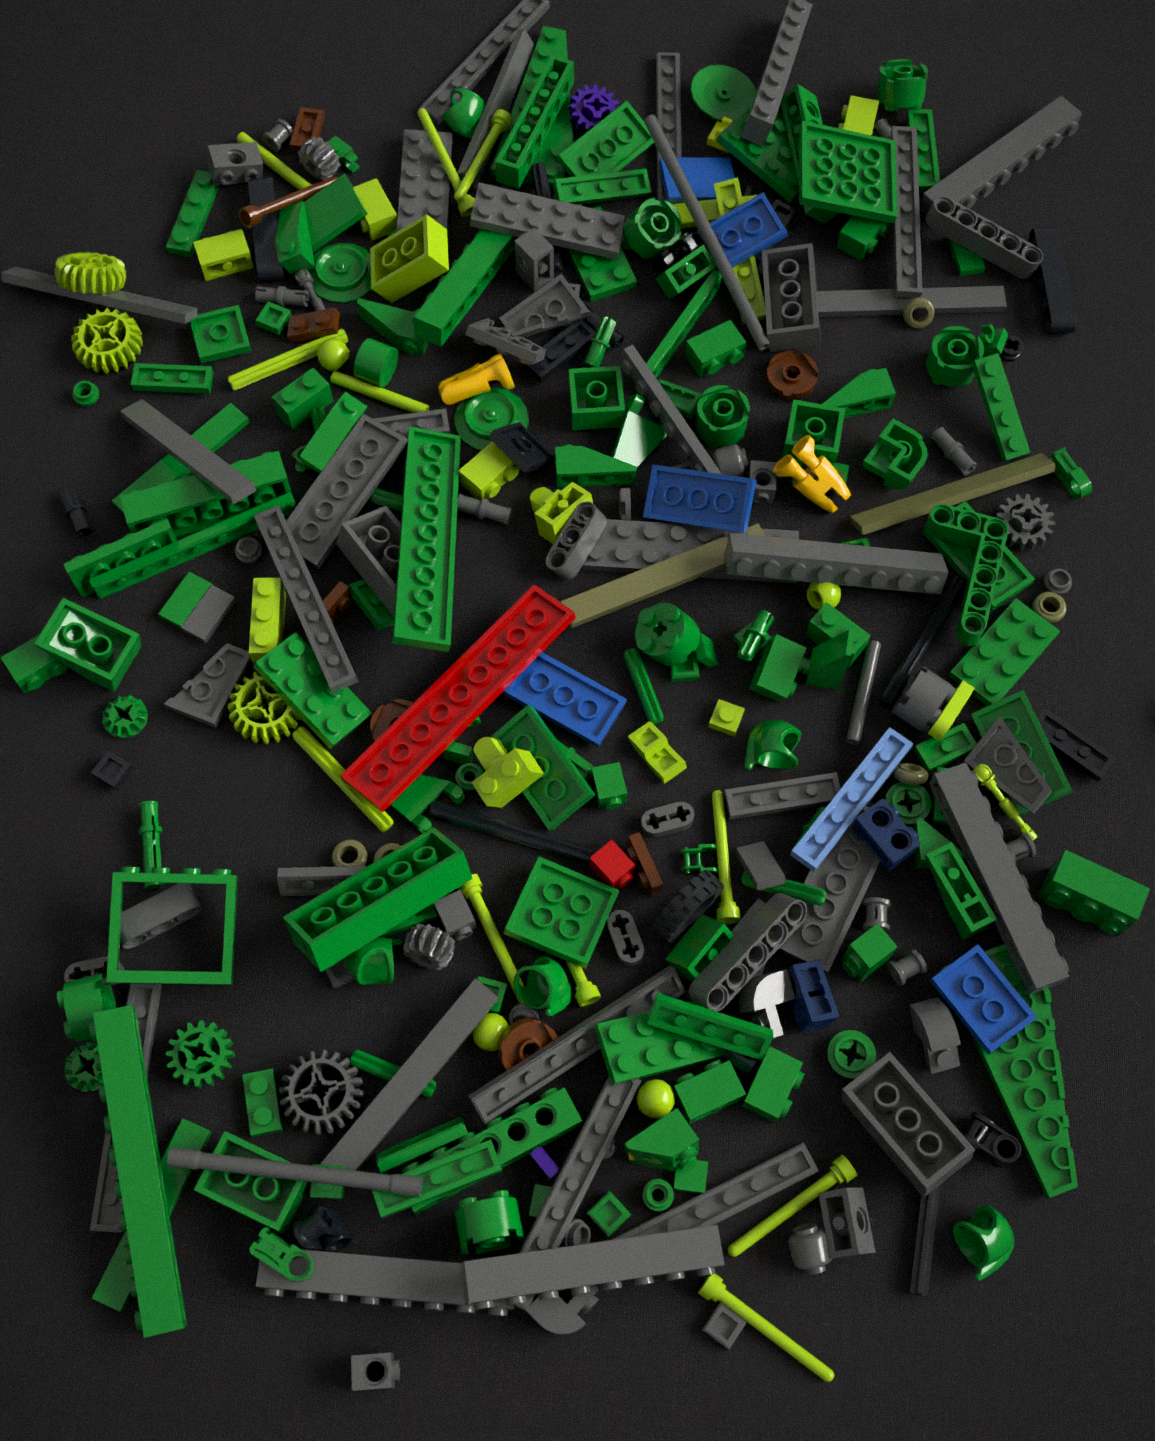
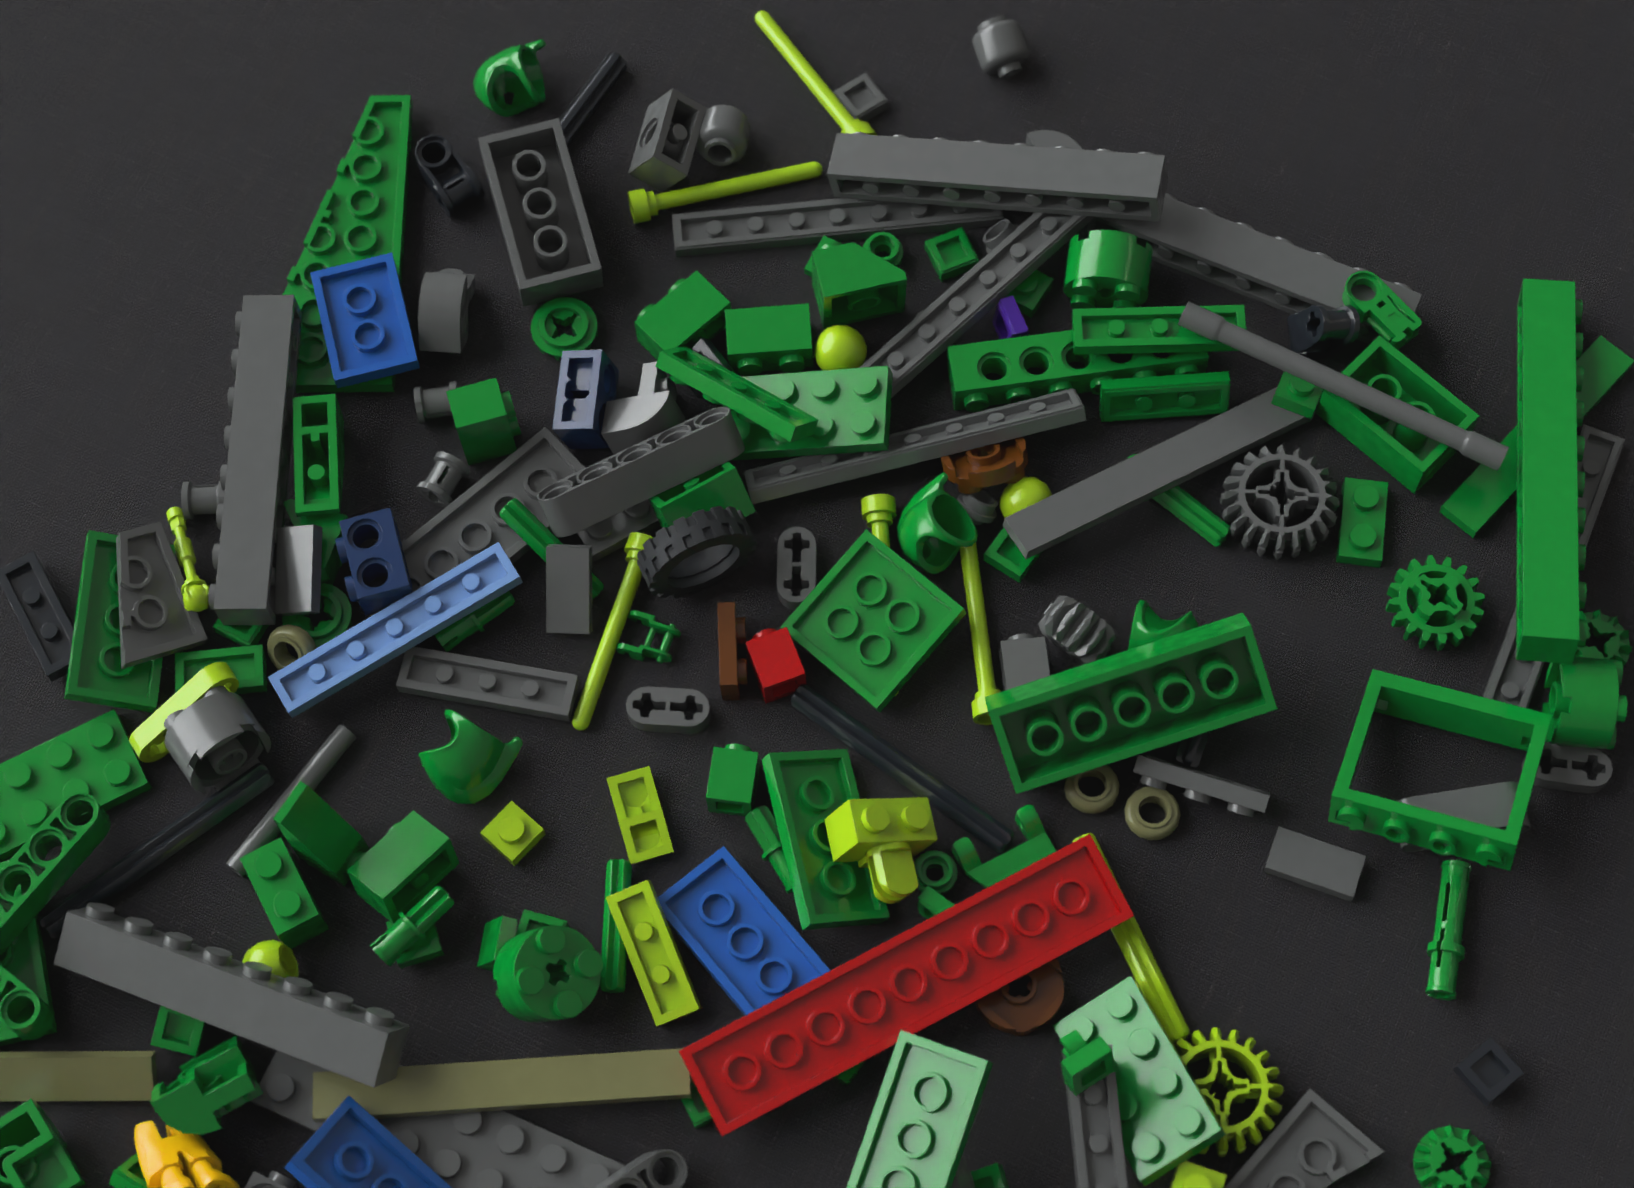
camera: 155 degrees left, 0 degrees up
(243, 858) = (1314, 864): none -> dark grey tile
(341, 664) = (1085, 1062): none -> green tile
(361, 1364) = (1301, 160): dark grey brick -> none
(614, 672) = (653, 953): none -> lime plate
(634, 1409) = (1001, 47): none -> dark grey head
(824, 515) = (207, 1089): none -> green brick
(931, 813) = (298, 570): none -> dark grey tile
(1093, 893) = (146, 396): green brick -> none

